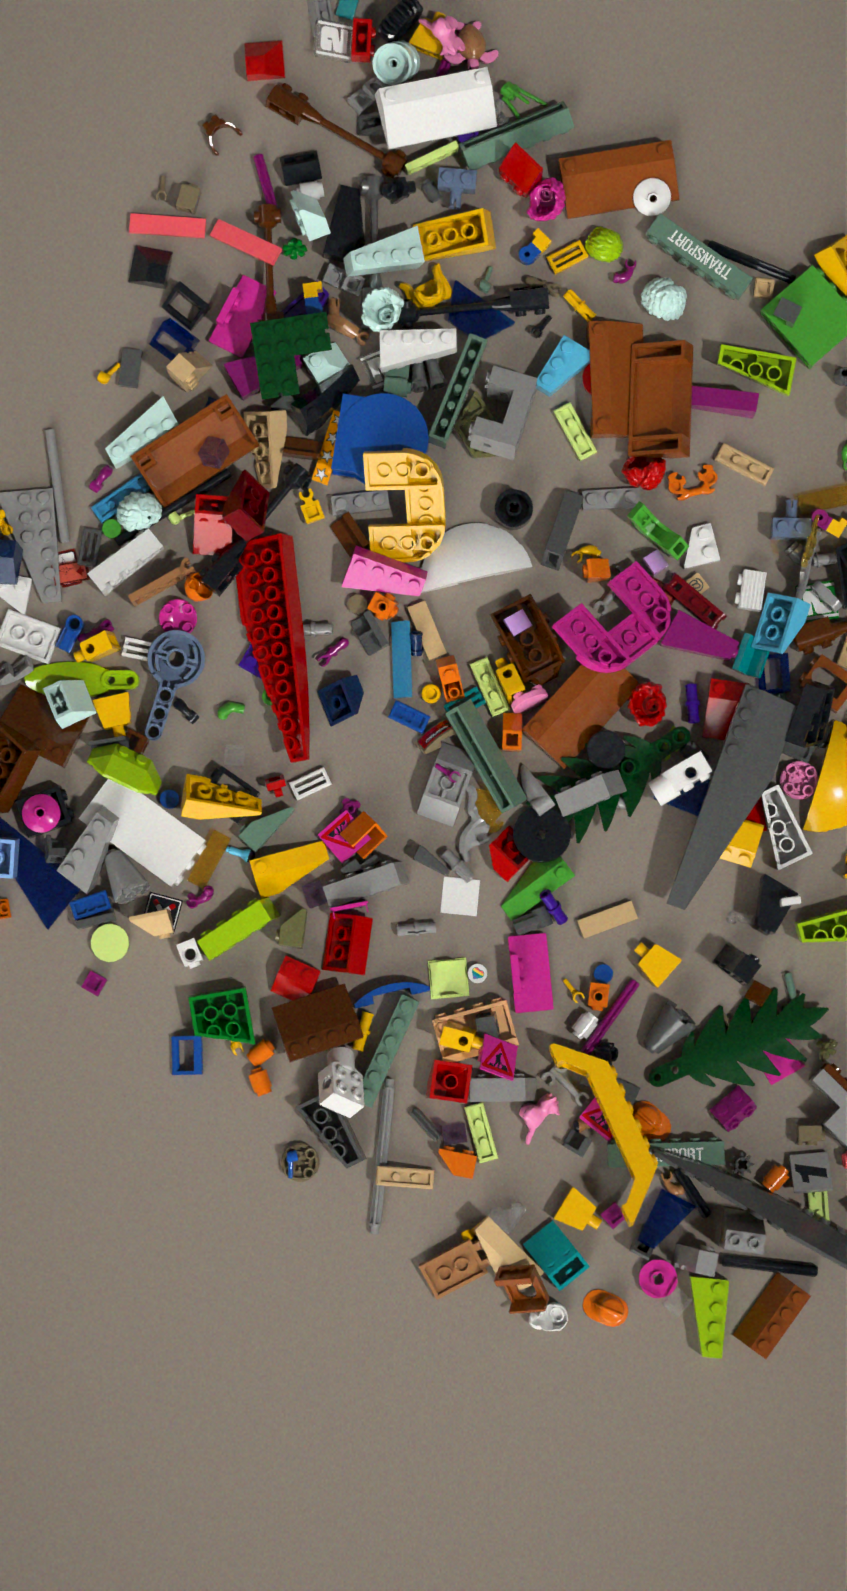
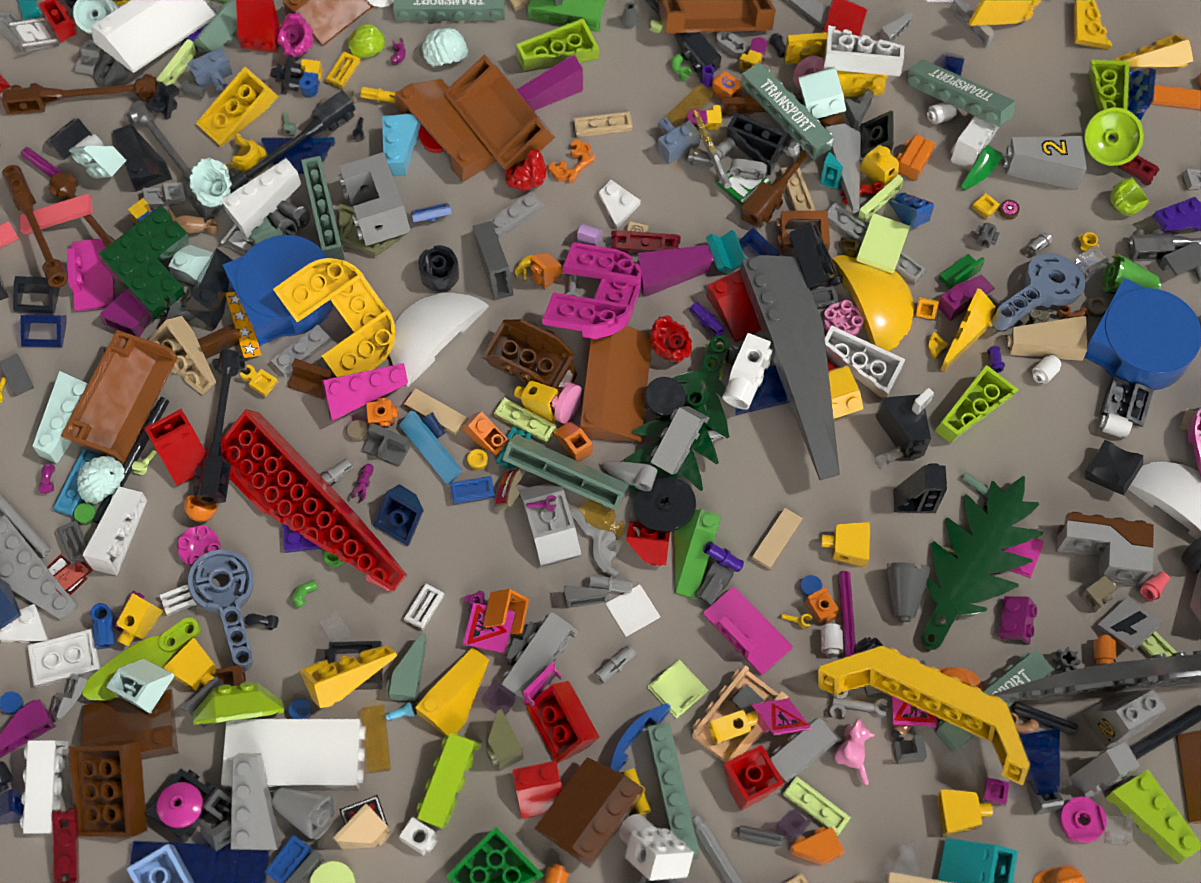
camera: 40 degrees left, 20 degrees down
(69, 834) = (219, 806): none -> dark grey slope
(161, 583) = (161, 525): medium nougat tile -> none
(188, 369) = (67, 338): tan wedge -> none
(206, 895) = (396, 775): magenta arm -> none
(213, 452) = (137, 386): panel -> none
(228, 208) = (24, 201): none -> reddish brown bar
(246, 507) = (198, 410): dark red slope -> none
(275, 783) = (393, 627): red tile -> none
(294, 248) = (104, 196): green plant -> none
(390, 254) = (187, 148): light aqua wedge -> none
(477, 973) = (700, 665): white tile -> none
(512, 239) = (288, 82): none -> black hips
(517, 622) = (509, 347): lavender brick -> none
(544, 451) = (431, 213): none -> plate
(575, 431) = (446, 185): yellowish green tile -> none
(656, 532) = (573, 213): bright green arch -> none
(751, 590) = (684, 205): white brick -> none
(758, 993) = (955, 507): reddish brown tile -> none
(780, 622) = (727, 207): medium azure slope -> none
(826, 1049) = (1049, 512): olive plant -> none

